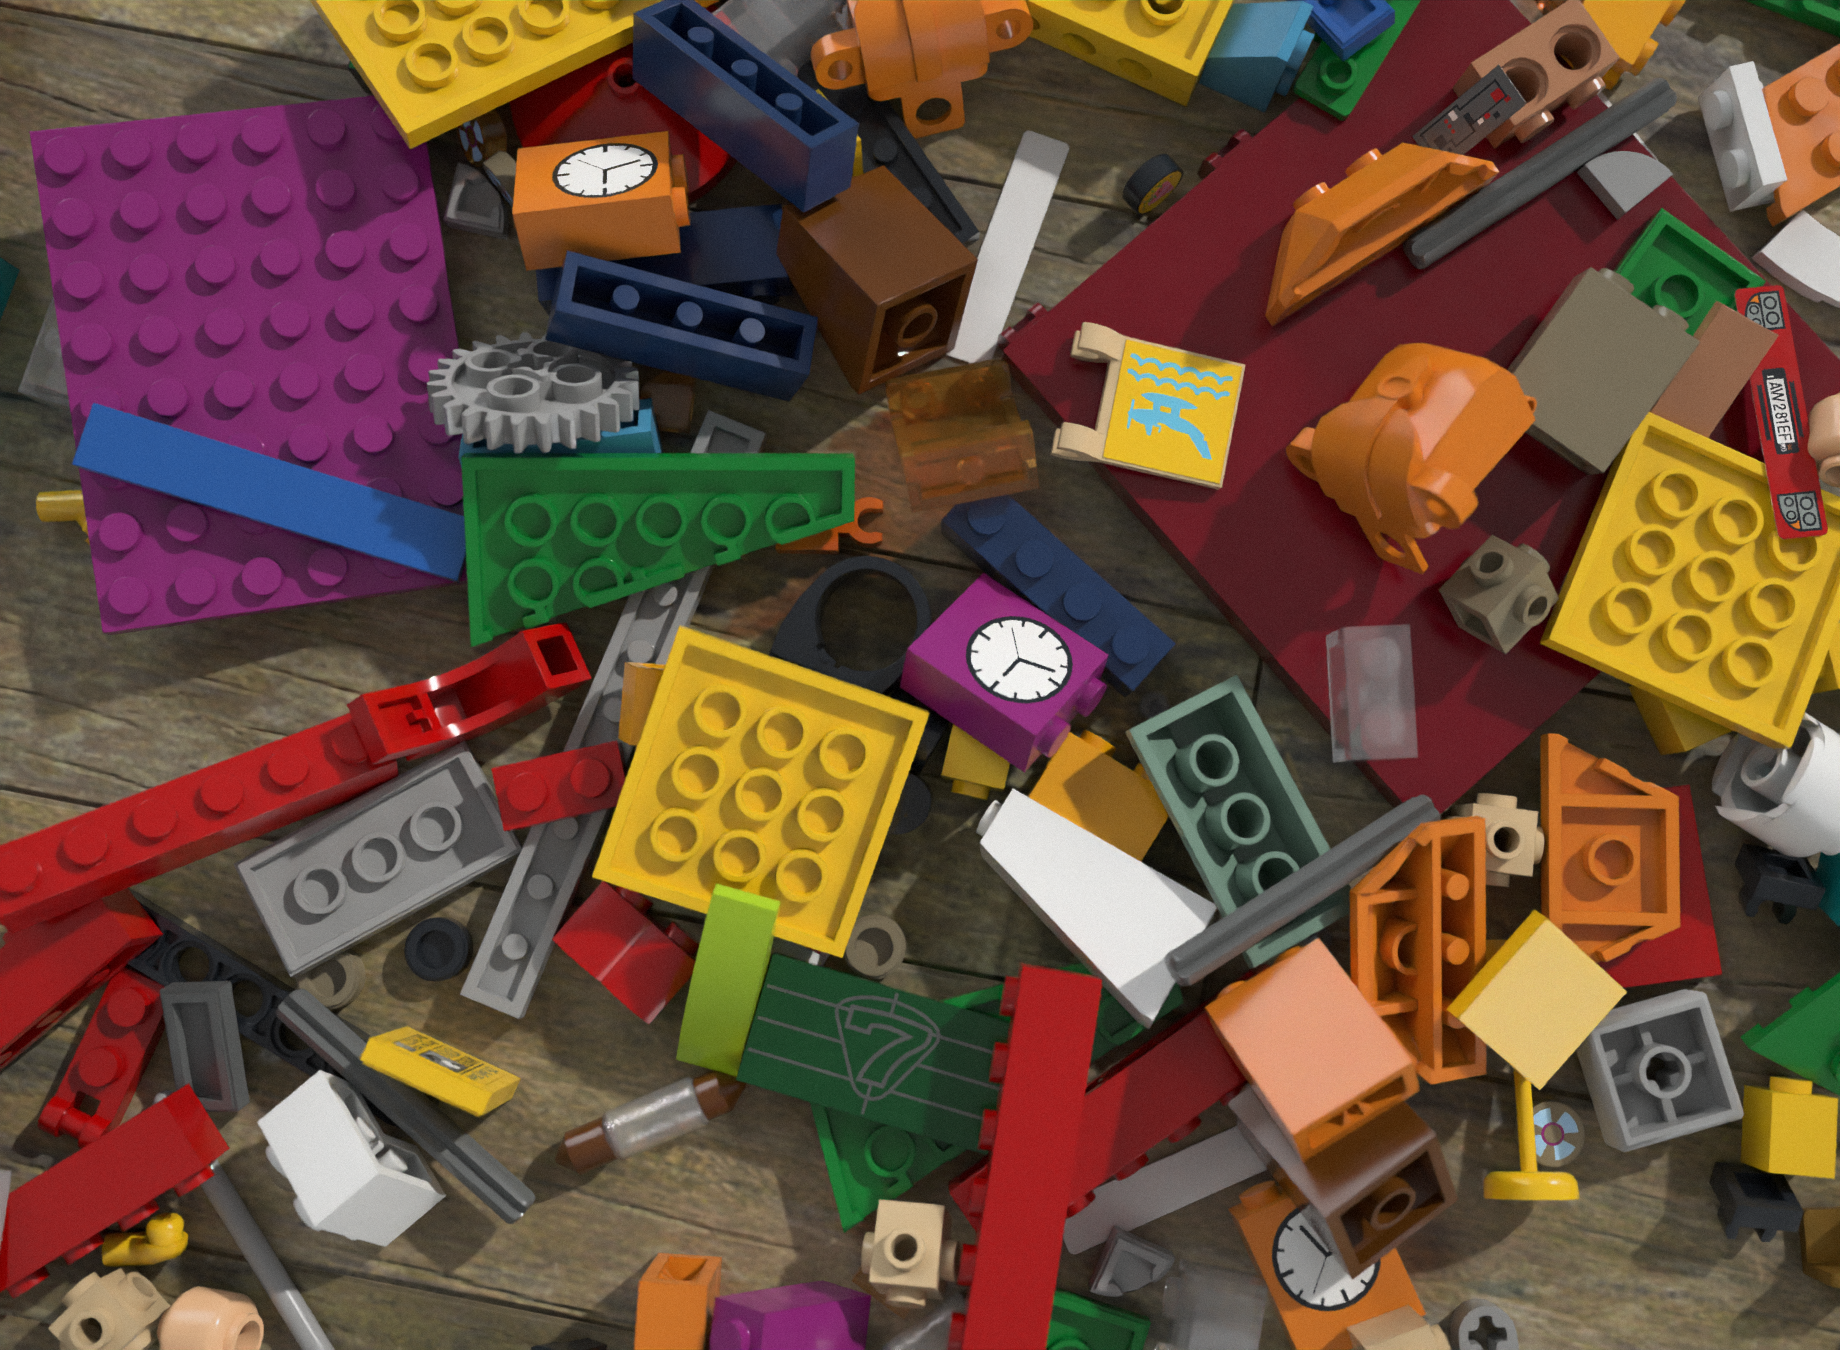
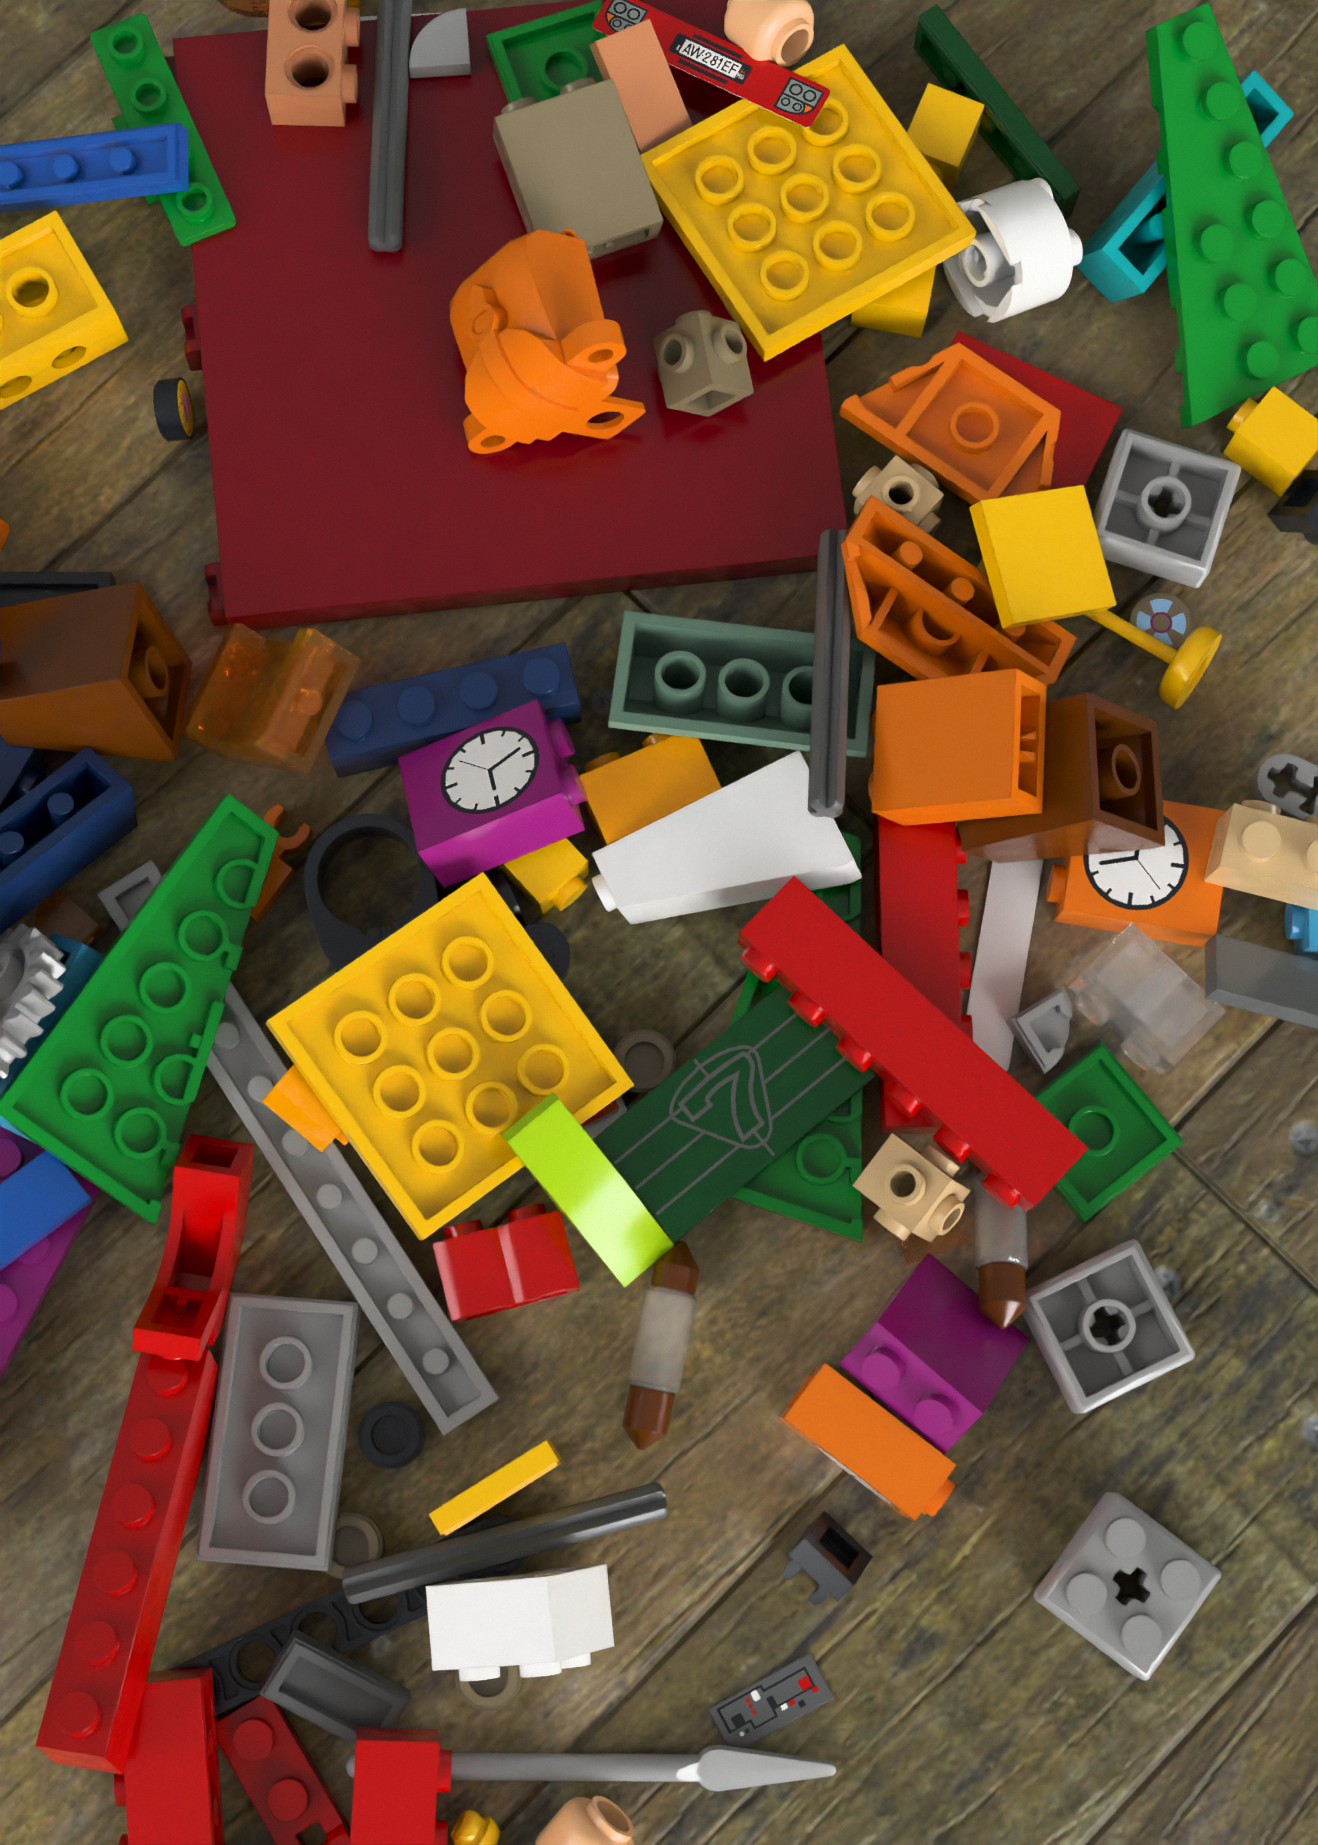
camera: 60 degrees left, 5 degrees down
(560, 785) = (328, 1227): red plate -> none
(1009, 244) = (136, 556): white sticker -> none
(1157, 409) = (364, 526): flag -> none
(1258, 51) = (130, 250): dark azure slope -> none
(1366, 217) = (329, 260): orange wedge -> none
(1371, 694) = (713, 516): clear brick -> none
(1472, 115) = (308, 128): dark grey sticker -> none
(1777, 878) = (1075, 314): black tile -> none

